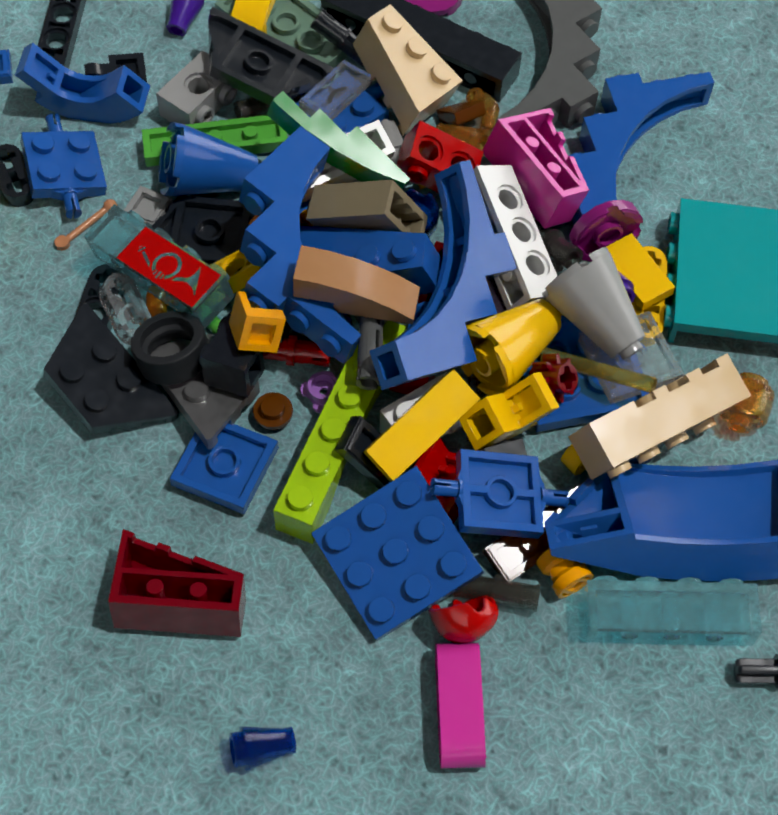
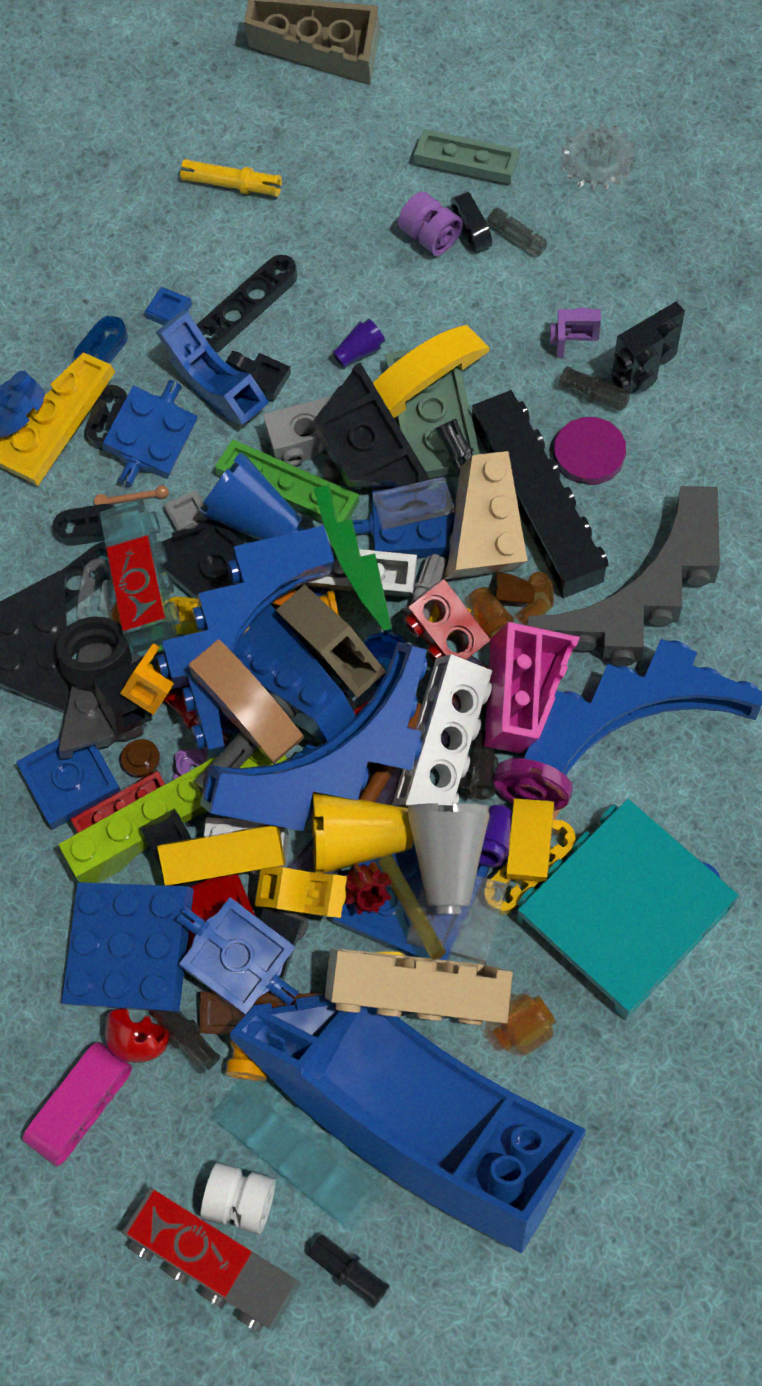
camera: 45 degrees right, 5 degrees up
(67, 264) = (87, 525): none -> black beam
(286, 455) = (117, 801): none -> red piece
(658, 676) = (238, 1198): none -> white wheel
(674, 740) = (212, 1260): none -> brick

